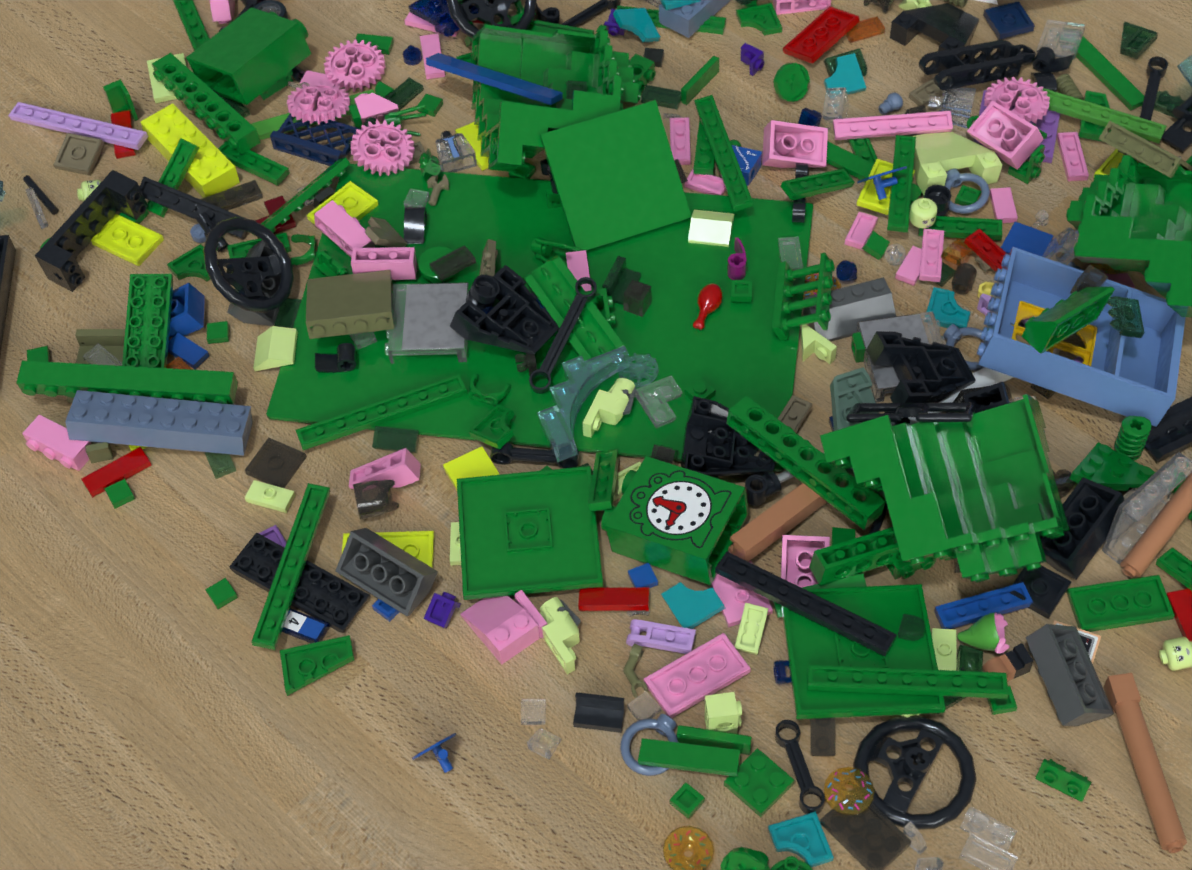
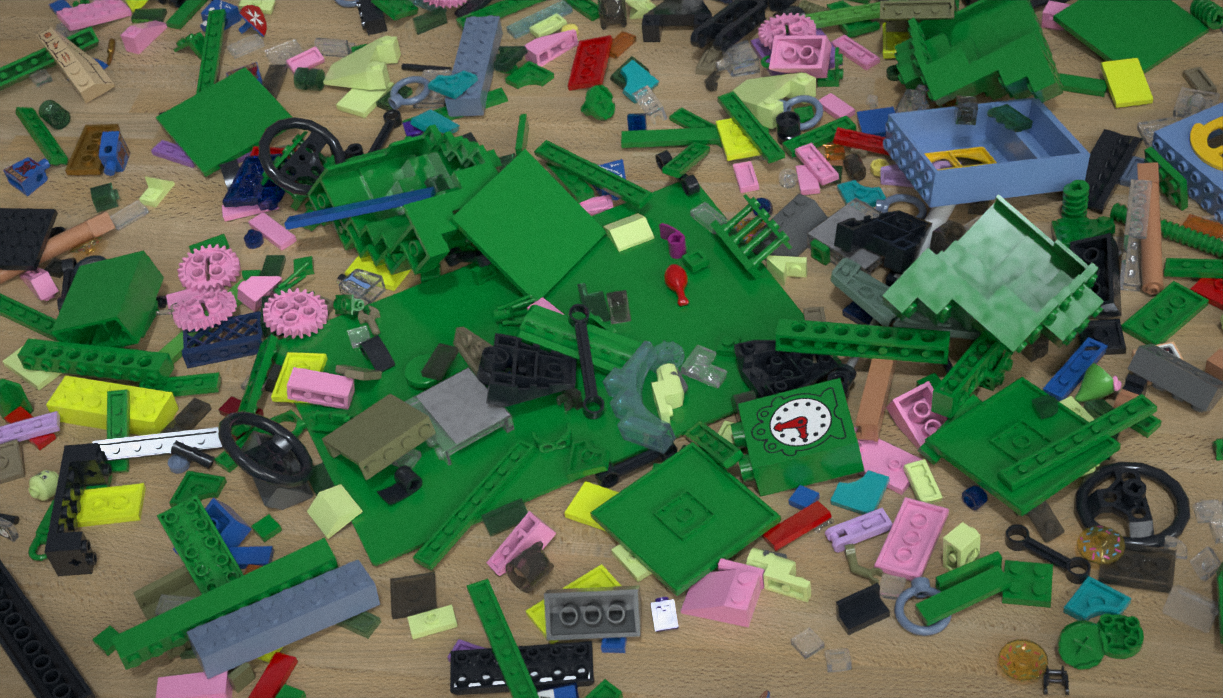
camera: 30 degrees left, 10 degrees down
(355, 116) = (245, 304): green tile -> none
(398, 260) = (394, 382): bright pink brick -> none
(687, 800) = (987, 628): green plate -> none
(752, 57) = (550, 102): dark purple bracket -> none
(794, 143) = (641, 143): bright pink slope -> none
(806, 603) = (953, 435): black tile -> none
(875, 245) = (767, 179): green tile -> none
(881, 184) = (738, 133): blue shield -> none
(892, 103) = (689, 81): sand blue piece -> none
(892, 125) = (704, 94): bright pink tile -> none
(917, 410) = (938, 247): black bar -> none
(923, 213) = (788, 136): yellowish green head -> none
(990, 397) = (961, 222): black slope -> none
(1066, 317) = (974, 134): green slope -> none

